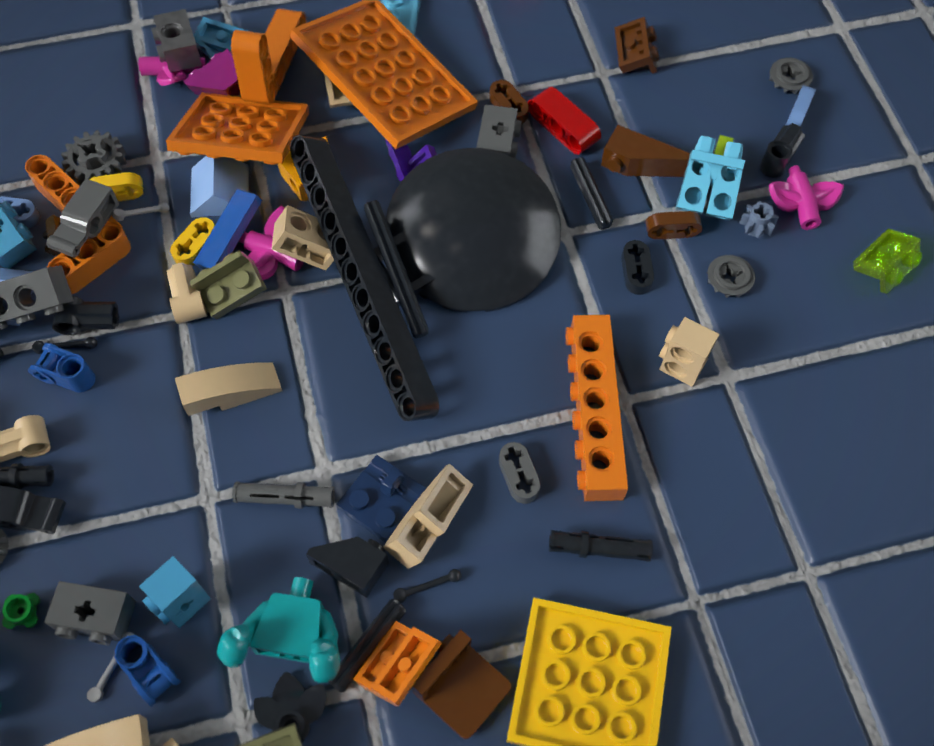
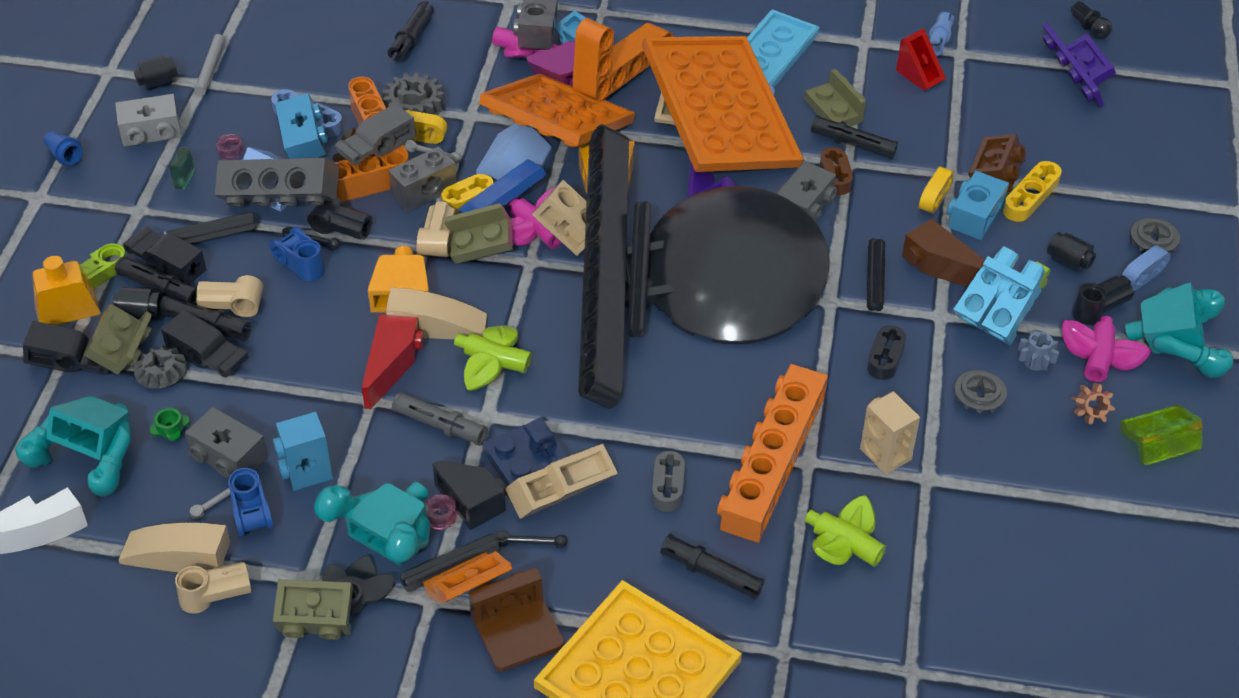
camera: 25 degrees right, 15 degrees down
(56, 93) = (407, 36): none -> black pin
(145, 244) = (421, 179): none -> flat silver brick
(173, 357) = (396, 271): none -> light orange torso
(206, 444) = (390, 355): none -> red slope
(299, 406) = (490, 354): none -> lime plant
(340, 586) = (441, 502): none -> clear pink bush
(477, 33) = (837, 100): none -> olive bracket
(508, 63) = (843, 133): none -> black pin
(564, 120) = (883, 202): red beam -> none
(602, 92) = (936, 189): none -> yellow beam
(642, 95) = (977, 205): none -> dark azure brick
(669, 73) = (1032, 180): none -> yellow beam
(673, 225) = (944, 327): reddish brown beam -> none
(693, 463) = (847, 533): none -> lime plant
(737, 113) = (1071, 251): none -> black brick
(826, 254) = (1100, 410): none -> nougat gear
(857, 157) = (1174, 327): none -> teal torso

